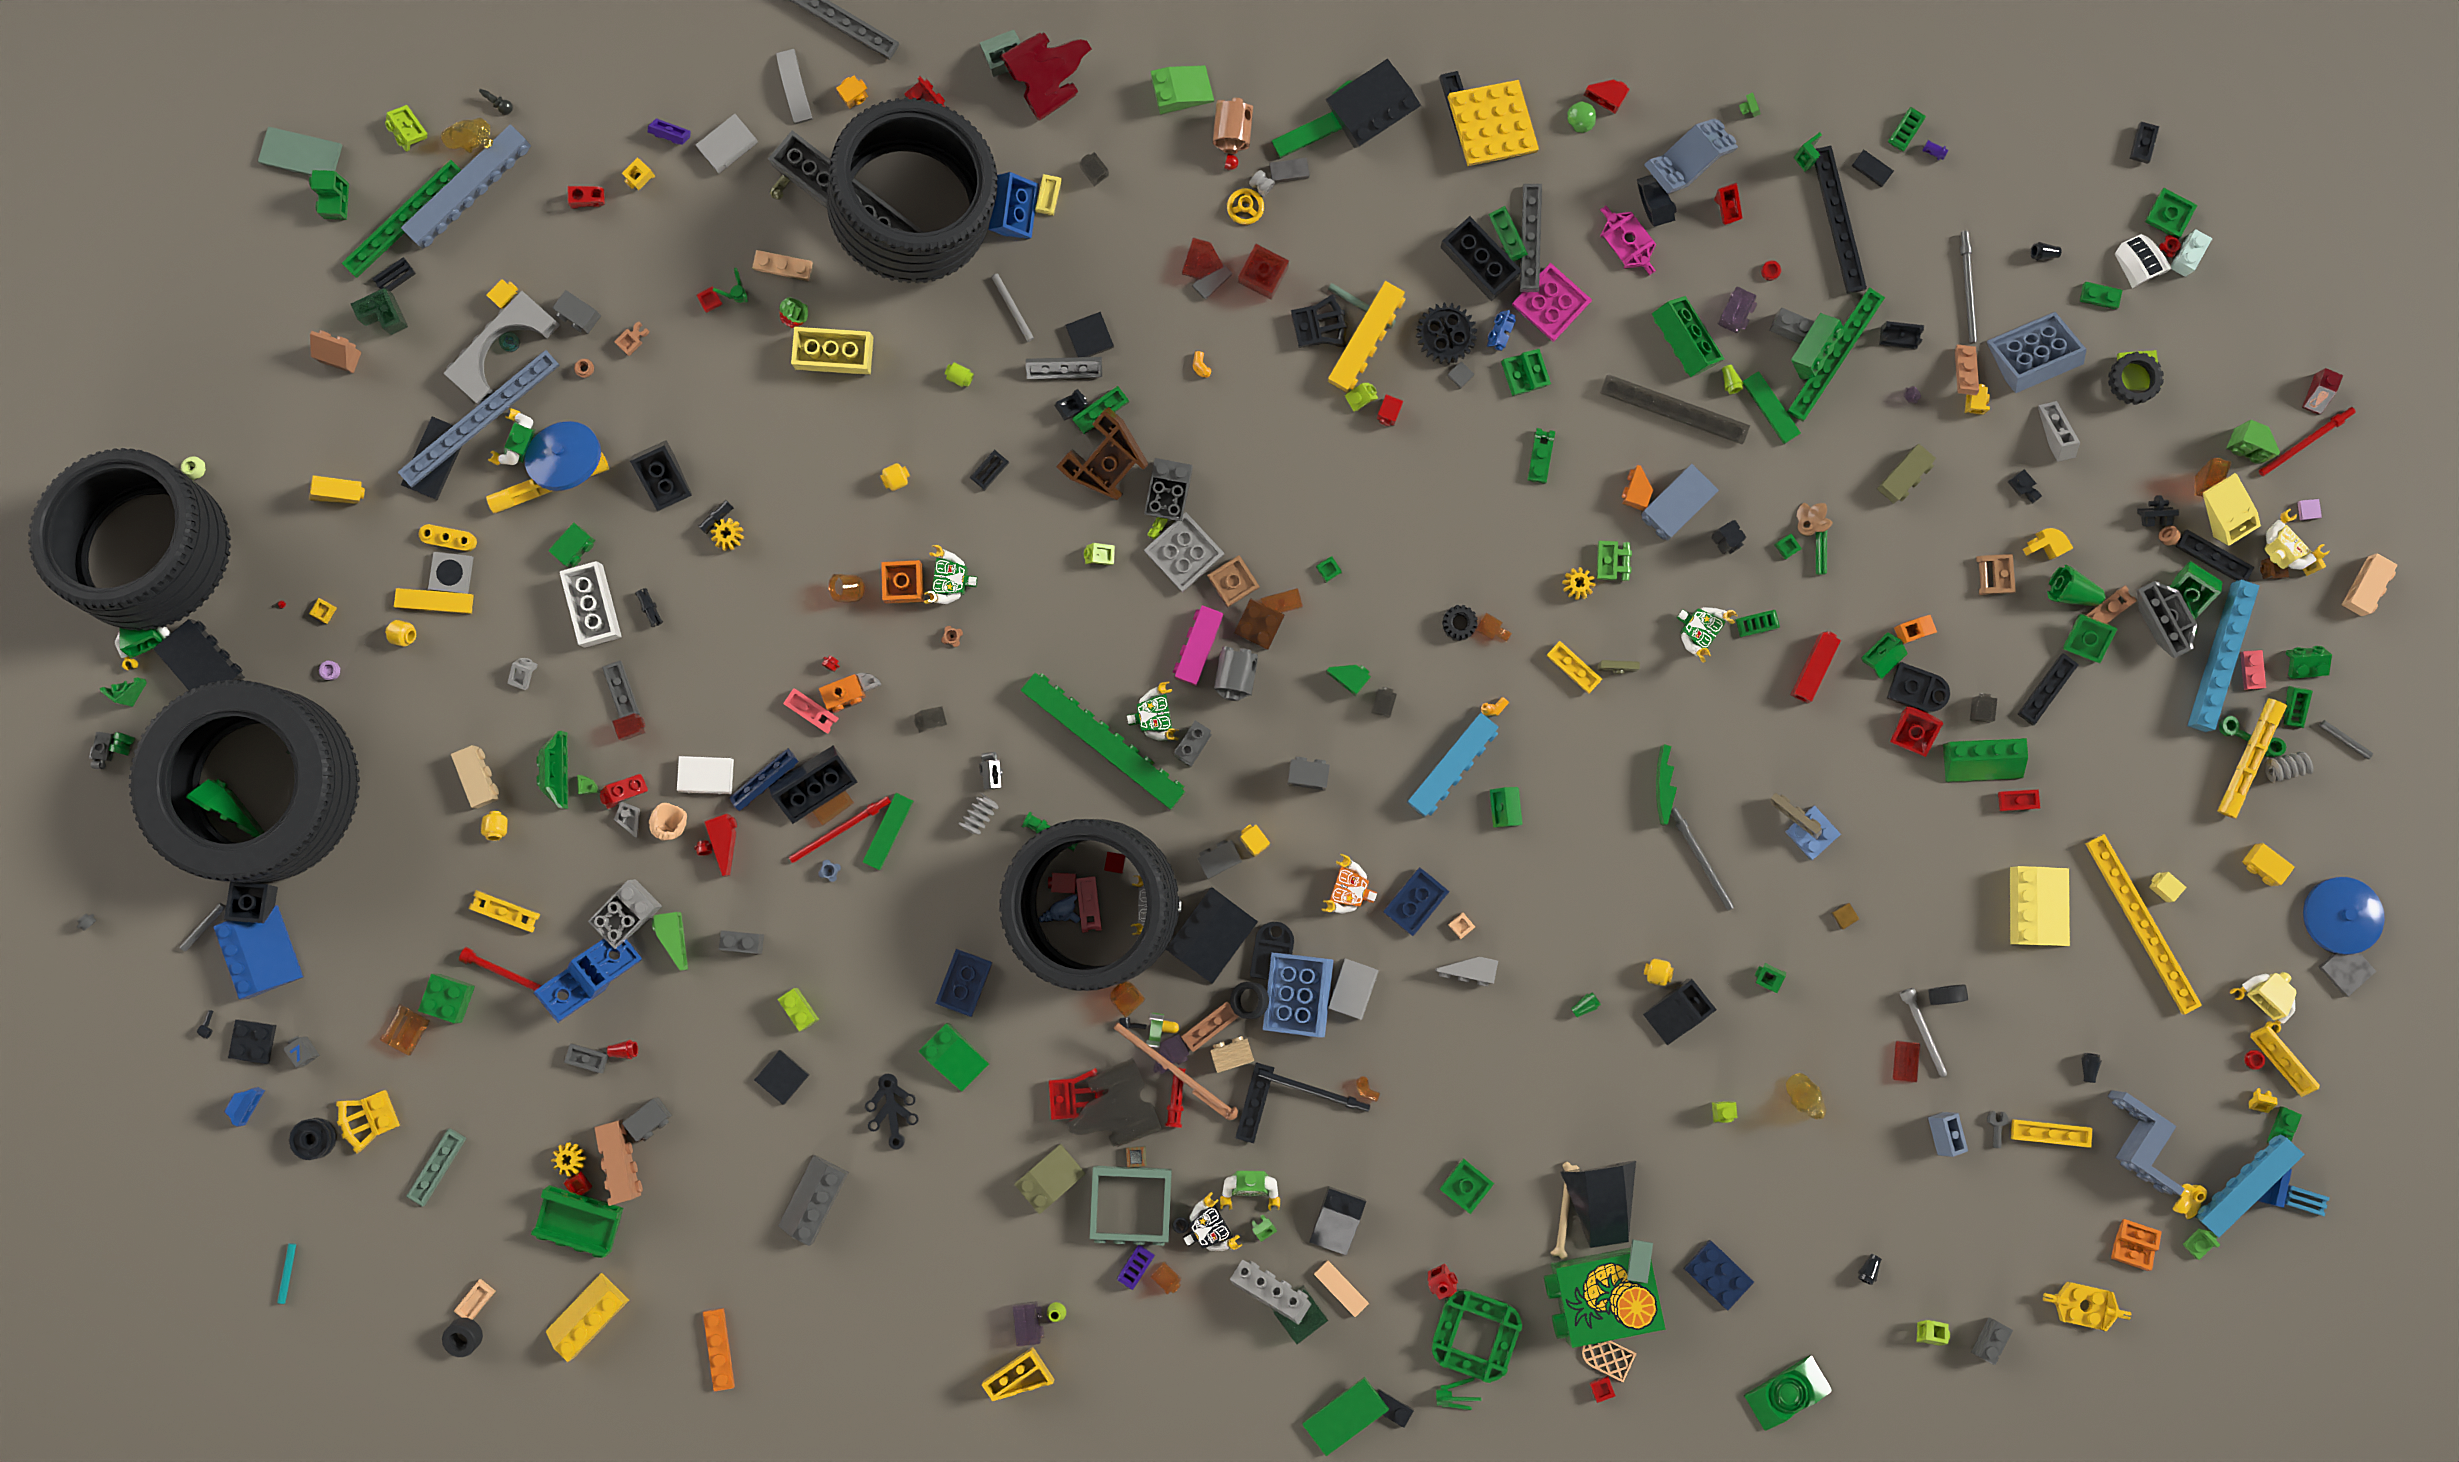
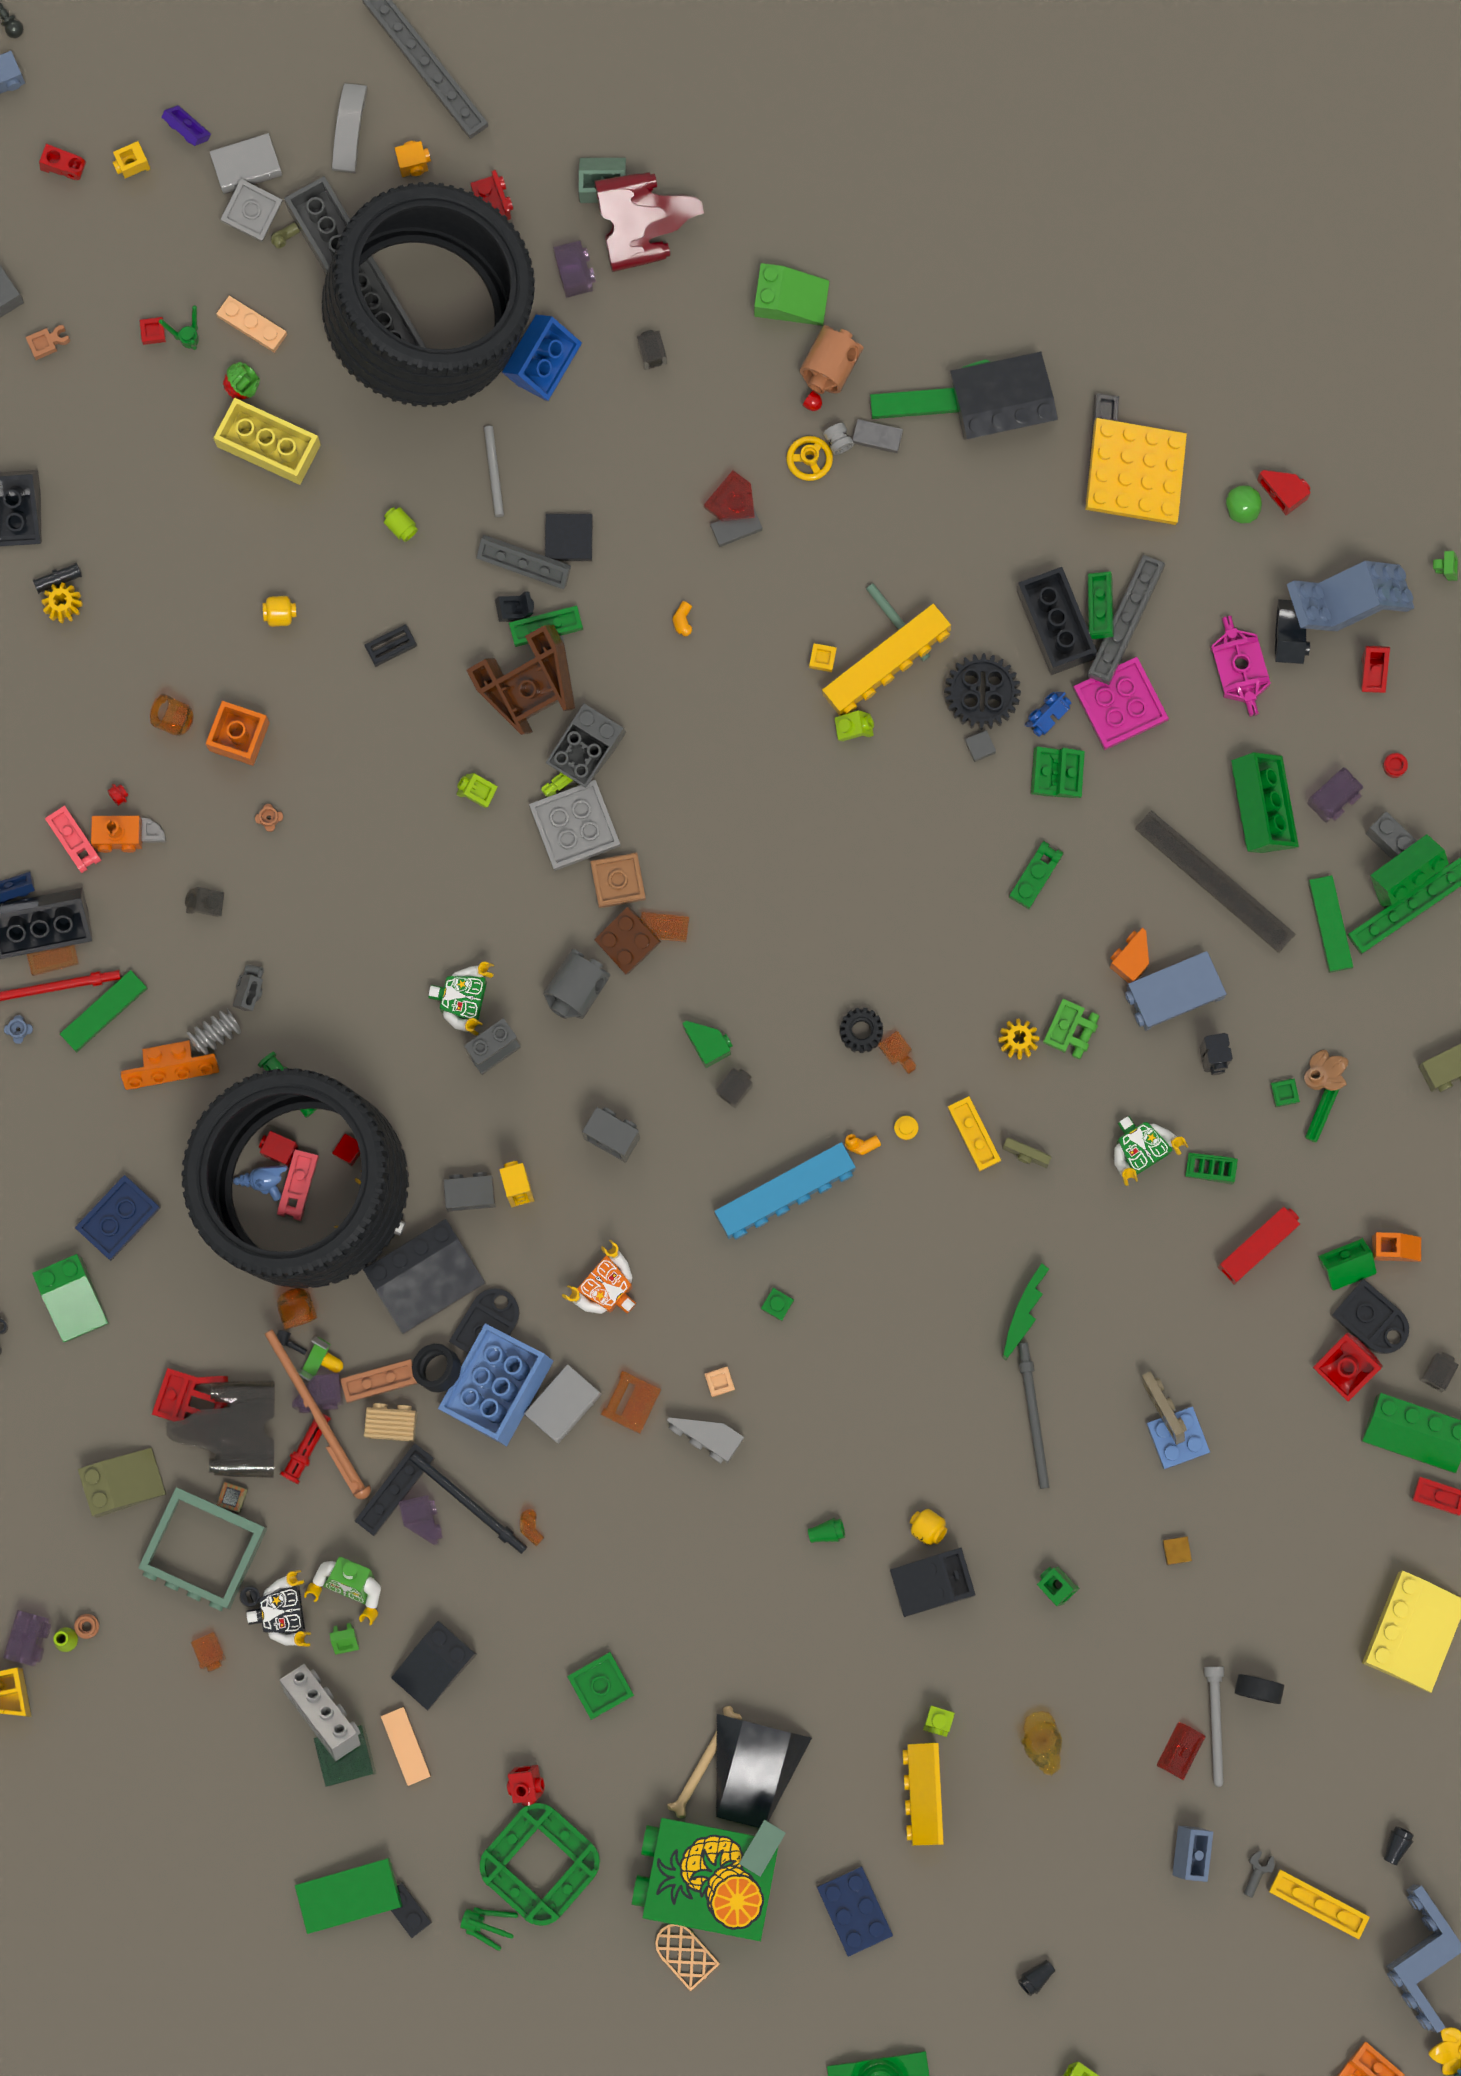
camera: 25 degrees right, 5 degrees down
(746, 177) = (251, 210): none -> light grey plate
(949, 578) = (292, 750): torso -> none
(953, 852) = (169, 1064): none -> orange bracket
(1009, 129) = (573, 268): none -> clear purple brick
(1048, 194) = (588, 359): light yellow tile -> none
(1068, 1302) = (78, 1626): none -> nougat plate
(1103, 741) = (391, 1004): green brick -> none
(1127, 1282) = (156, 1629): dark purple slope -> none
(1199, 645) = (547, 938): dark pink brick -> none
(1263, 271) = (798, 539): clear red brick -> none
(1282, 1117) = (419, 1518): none -> clear purple slope
(1307, 324) = (824, 622): black plate -> none
(1317, 353) = (822, 657): none -> yellow plate
(1328, 569) = (734, 910): green tile -> none
(1389, 410) = (879, 754): red brick -> none
(1408, 967) = (638, 1406): none -> clear orange plate
(1416, 901) = (677, 1332): dark blue plate -> none
(1480, 851) = (777, 1304): none -> green plate
(1505, 807) = (828, 1264): green panel -> none
(1522, 682) = (906, 1127): none -> yellow plate
(1602, 1389) = (661, 1988): red plate -> none
(1732, 381) = (1296, 874): lime cone -> none
(1737, 1170) = (924, 1794): none -> yellow slope

